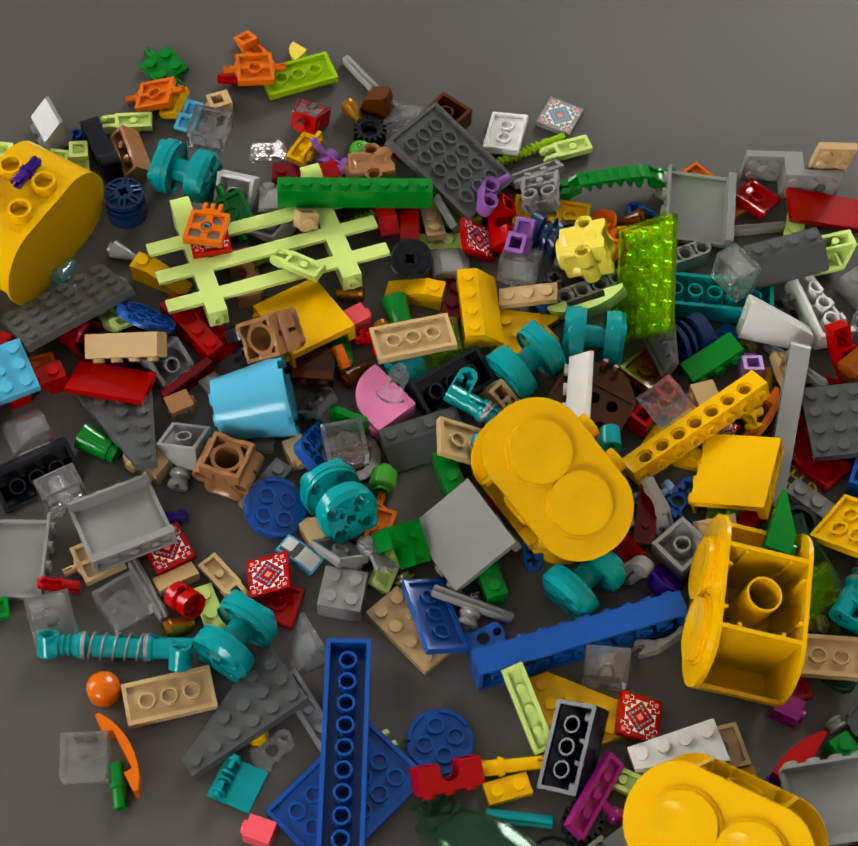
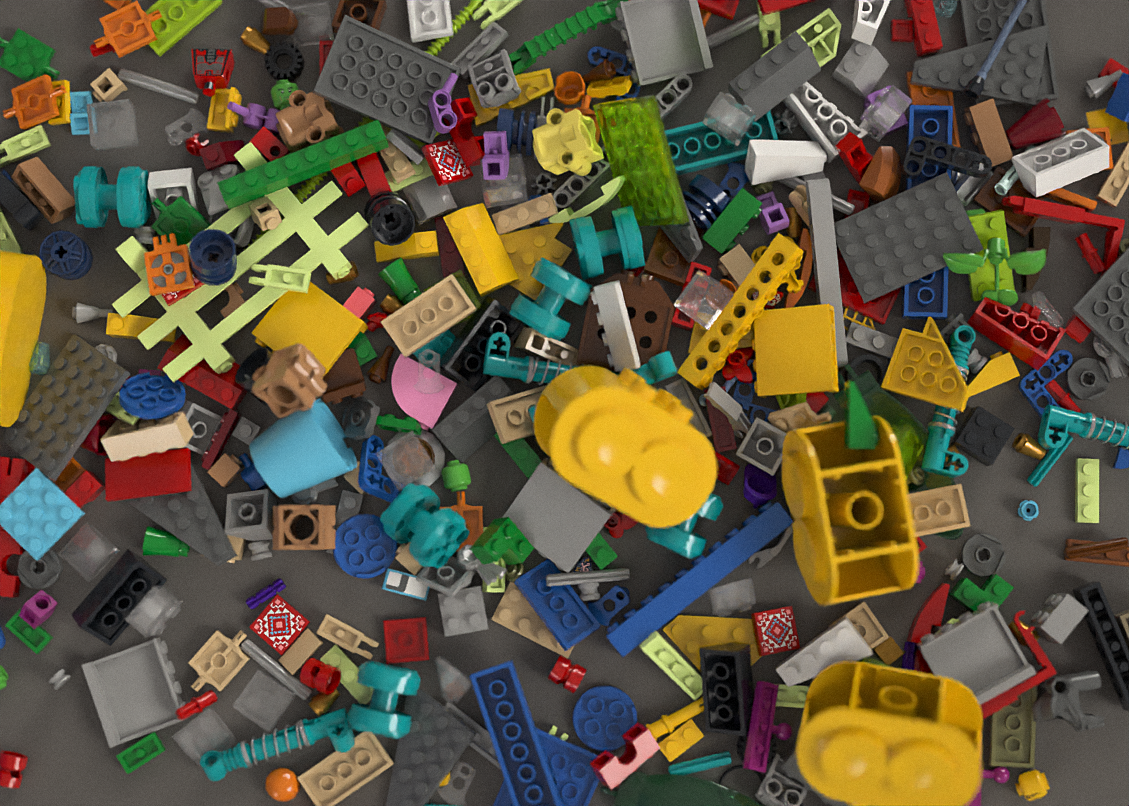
camera: 20 degrees left, 25 degrees up
(121, 523) = (227, 621): light grey panel -> none
(202, 416) = (251, 475): none -> blue piece
(248, 228) = (213, 257): none -> dark blue wheel
(260, 118) = (158, 86): none -> light grey axle
(267, 165) = (194, 145): none -> red plate
(269, 576) = (388, 620): red tile -> none
(341, 357) = (363, 357): orange pin -> none
(420, 685) = (567, 674): none -> red wheel
(517, 568) = (619, 522): none -> red animal
(637, 568) = (728, 485): light grey piece -> none
(678, 475) = (737, 365): none -> red animal

